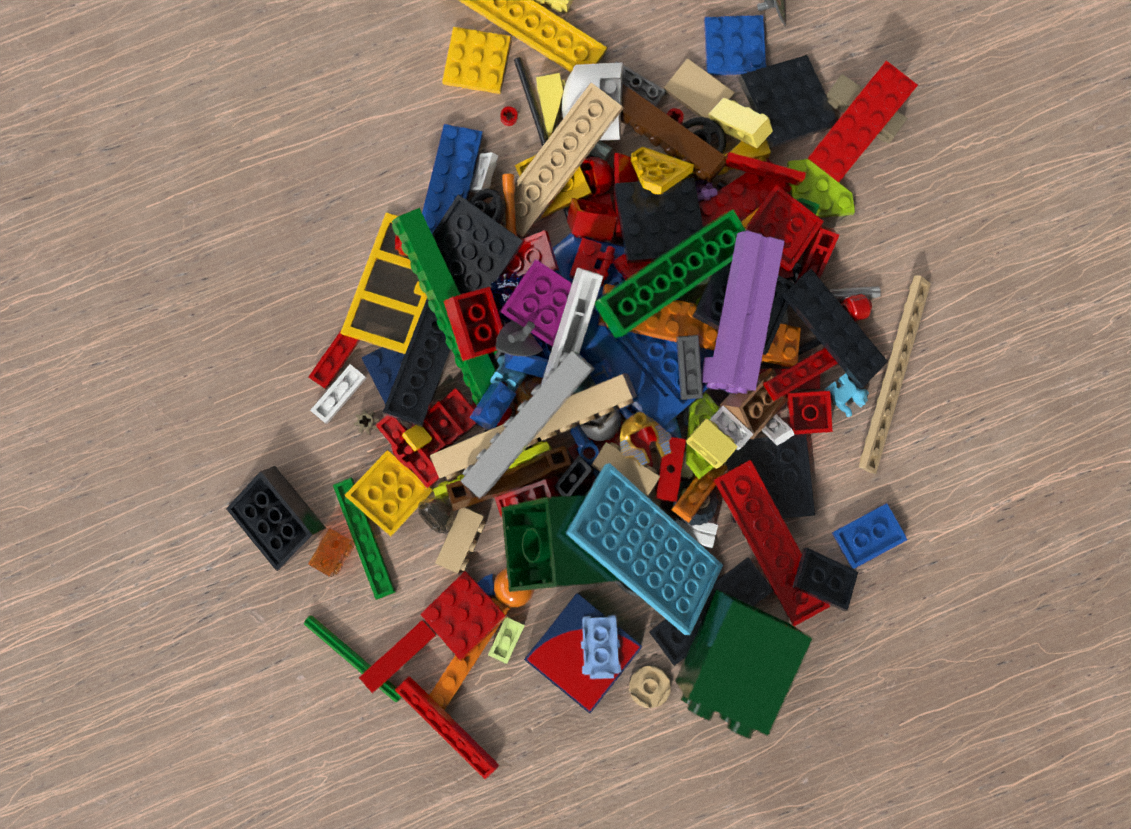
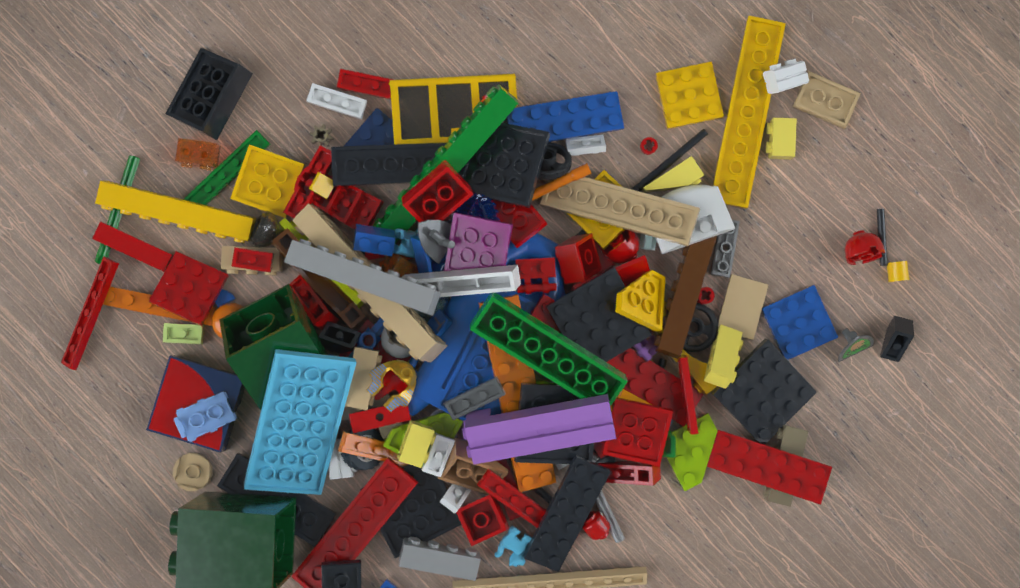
camera: 65 degrees right, 5 degrees up
(379, 596) = (174, 210): none -> yellow brick
(462, 536) = (252, 260): none -> red plate
(832, 470) = (439, 558): none -> light grey brick

